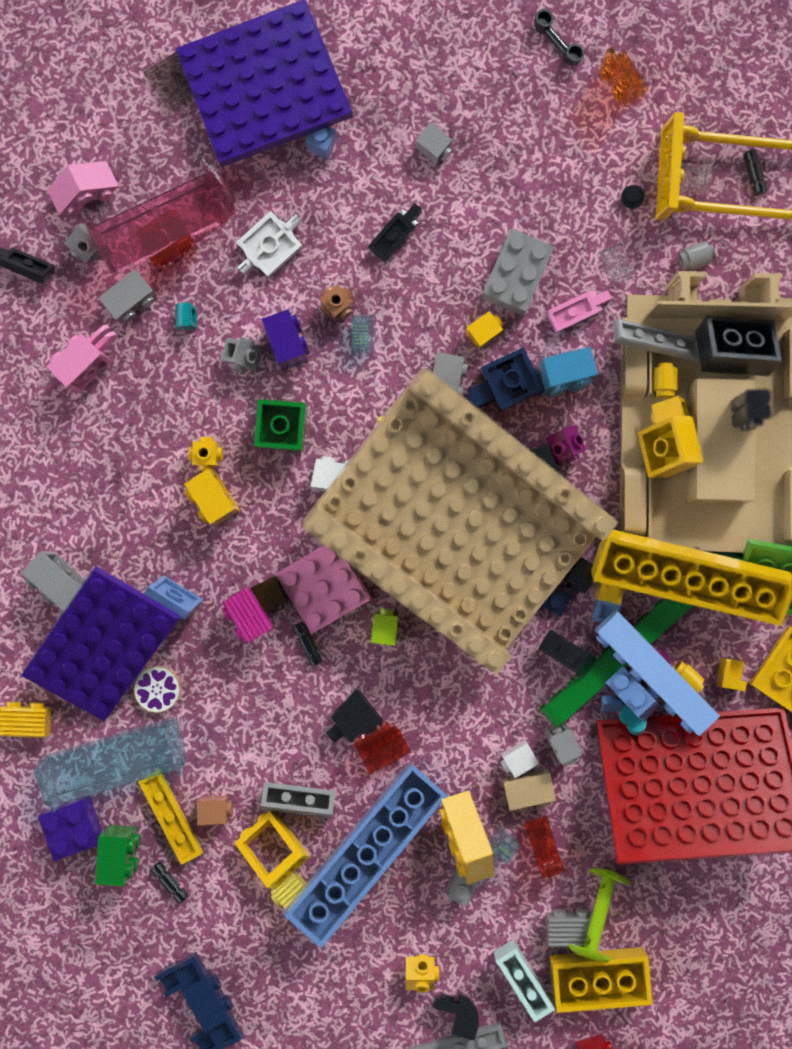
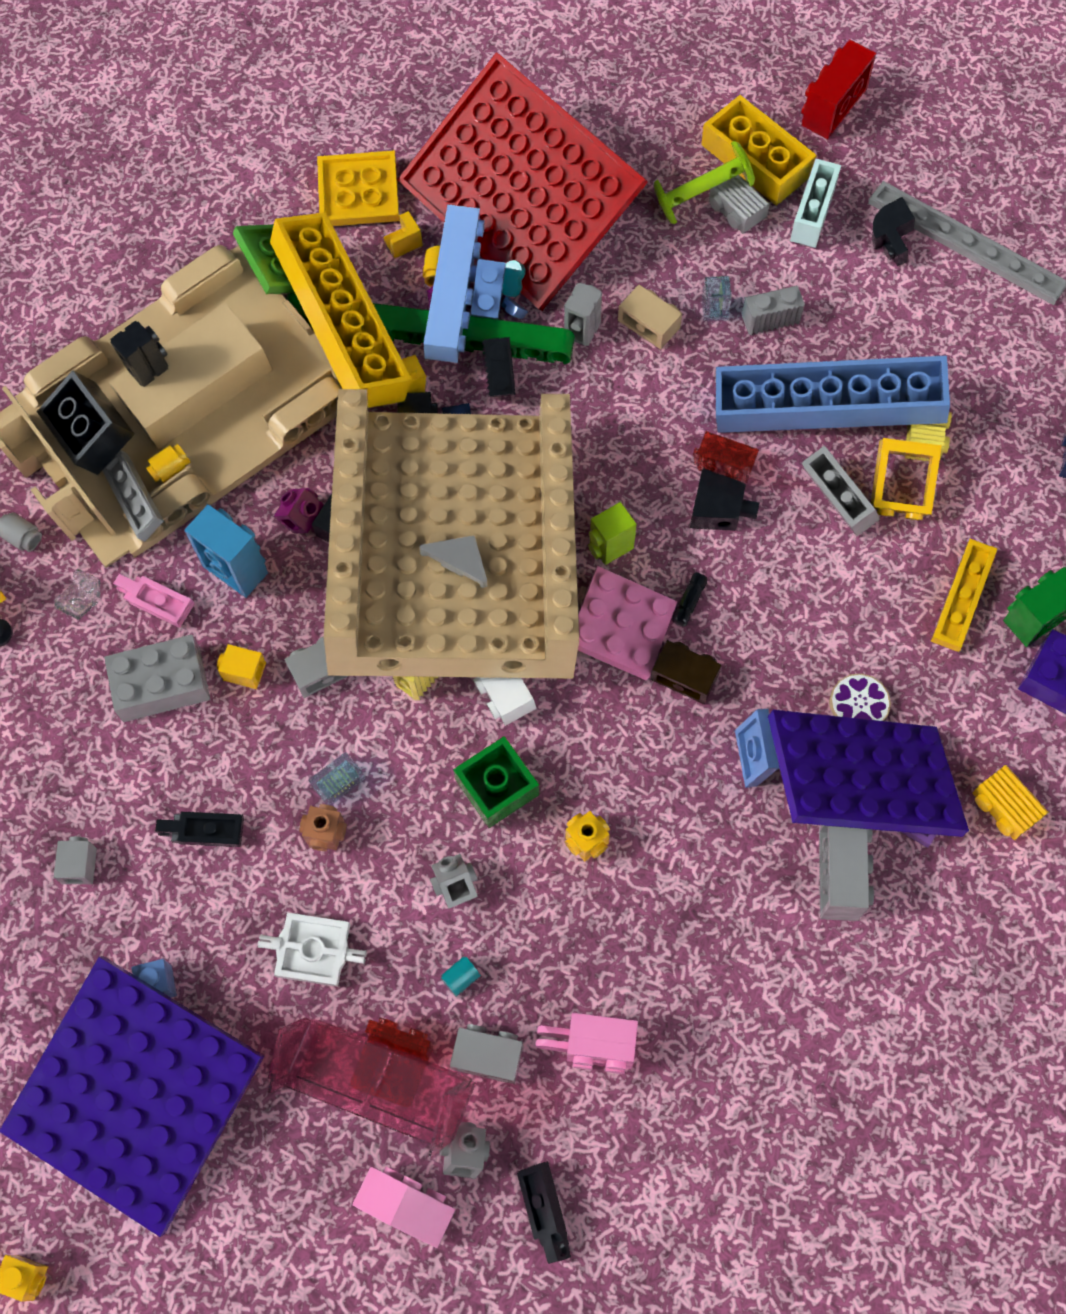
camera: 130 degrees left, 20 degrees down
(111, 762) = (965, 687): clear light blue piece -> none
(169, 882) = (1023, 550): black axle -> none
(170, 82) = (204, 1213): clear smoke tile -> none
(211, 497) = (624, 791): yellow brick -> none
(214, 810) = (920, 559): nougat brick -> none
(247, 615) = (710, 659): dark pink brick -> none
(284, 339) = (402, 843): dark purple brick -> none
(421, 973) = (890, 283): yellow brick -> none
(429, 506) = (458, 556): none -> light grey tile
(466, 838) = (737, 320): yellow brick -> none
(506, 382) = (278, 604): dark blue brick -> none
(519, 759) = (630, 343): white brick -> none
(544, 847) = (690, 264): clear red bracket -> none
(603, 610) = (435, 371): medium blue plate -> none
(670, 447) = (230, 405): yellow brick -> none
(671, 407) = (198, 435): yellow brick -> none

